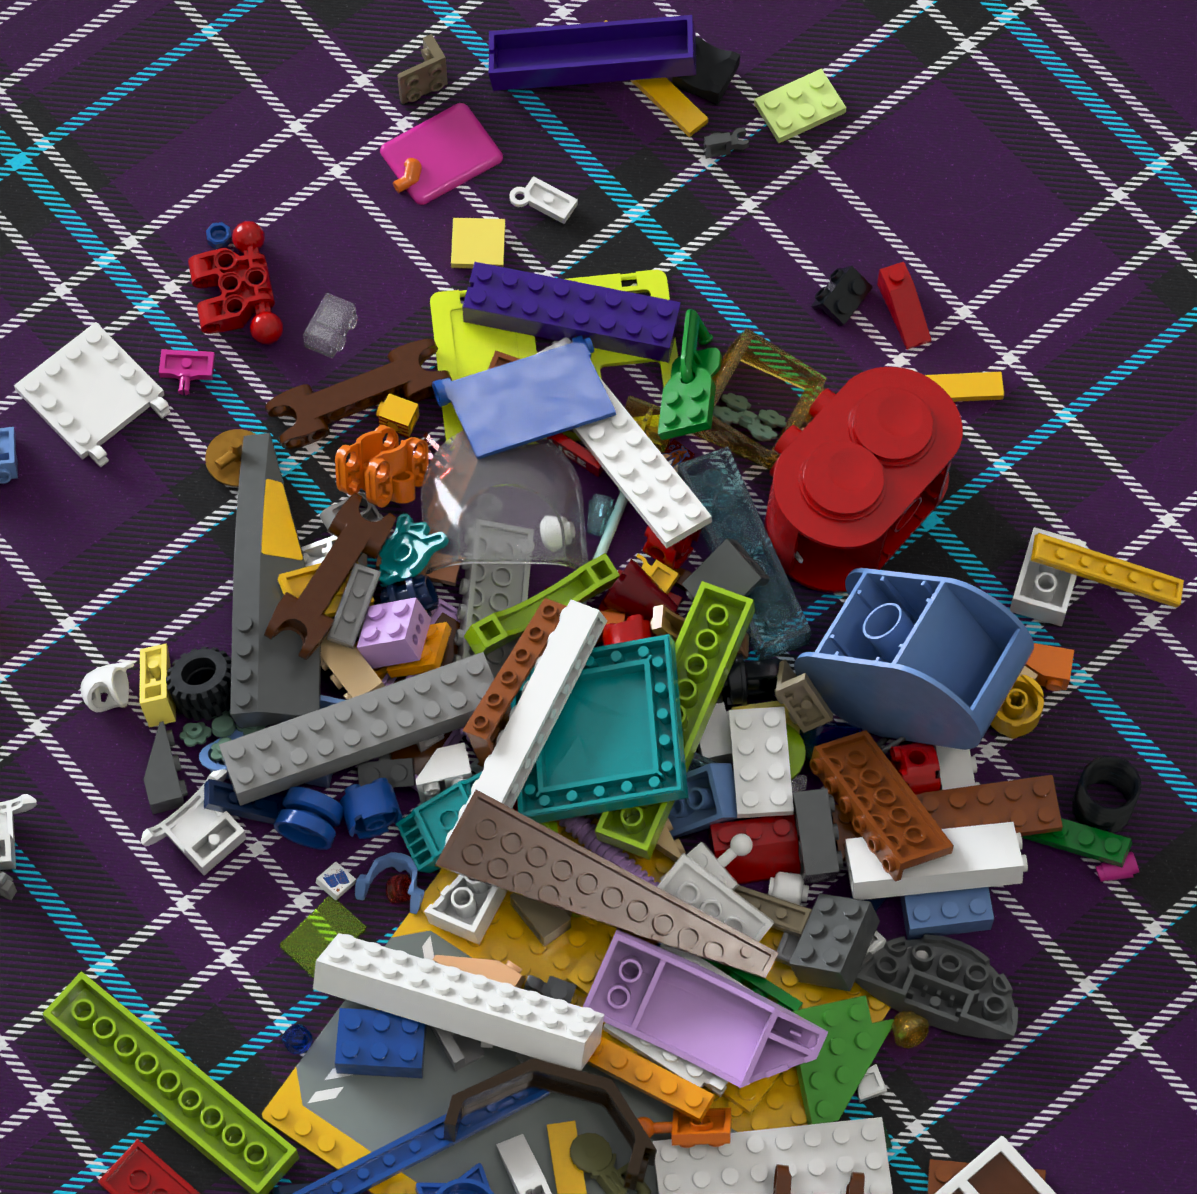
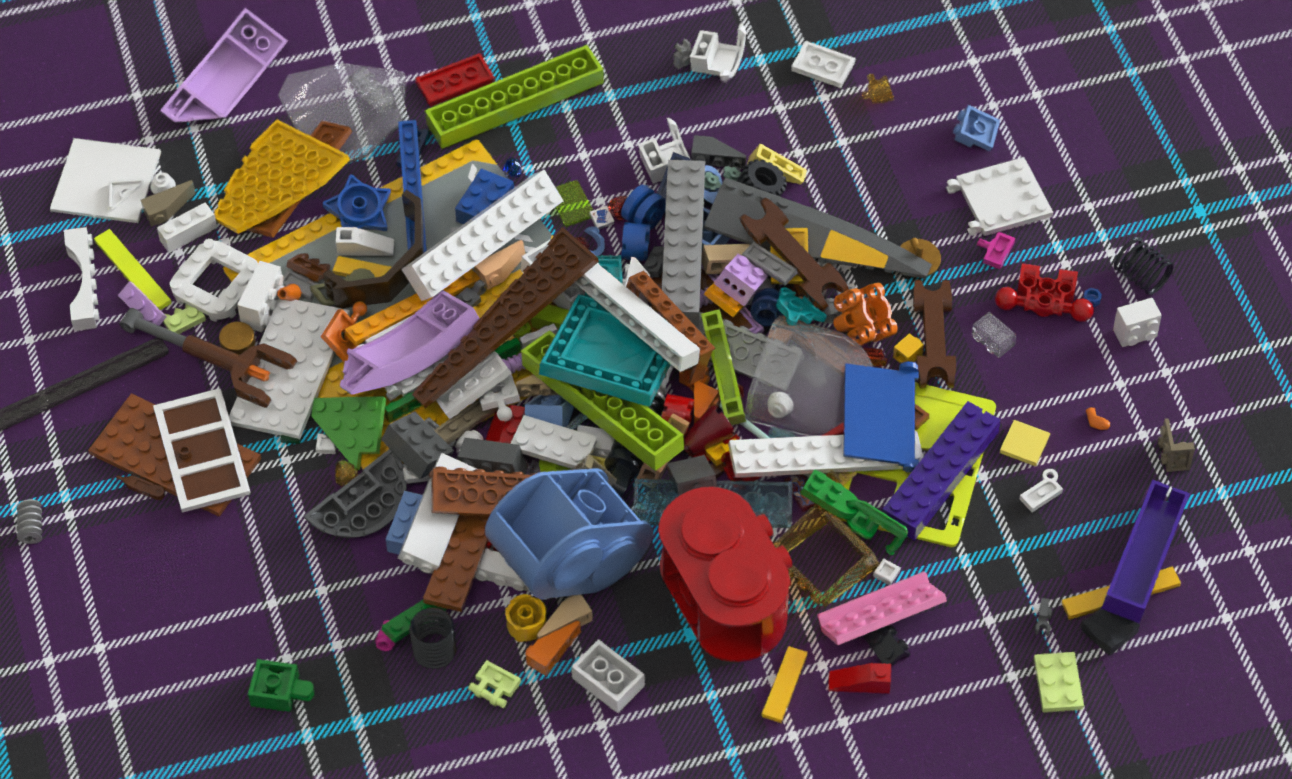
camera: 115 degrees right, 10 degrees down
(108, 679) = (787, 135): white piece -> none
(162, 168) = (1138, 250): none -> black piece
(248, 163) = (1137, 322): none -> white brick
(312, 861) = (615, 206): none -> clear red cone
(450, 150) = (1109, 453): dark pink piece -> none
(734, 328) = (886, 572): none -> white tile
(749, 419) = (812, 543): sand green plant -> none
(806, 308) = (880, 608): none -> bright pink bracket
(1107, 570) = (591, 709): yellow tile -> none
(1110, 709) = (498, 679): none -> yellowish green plate

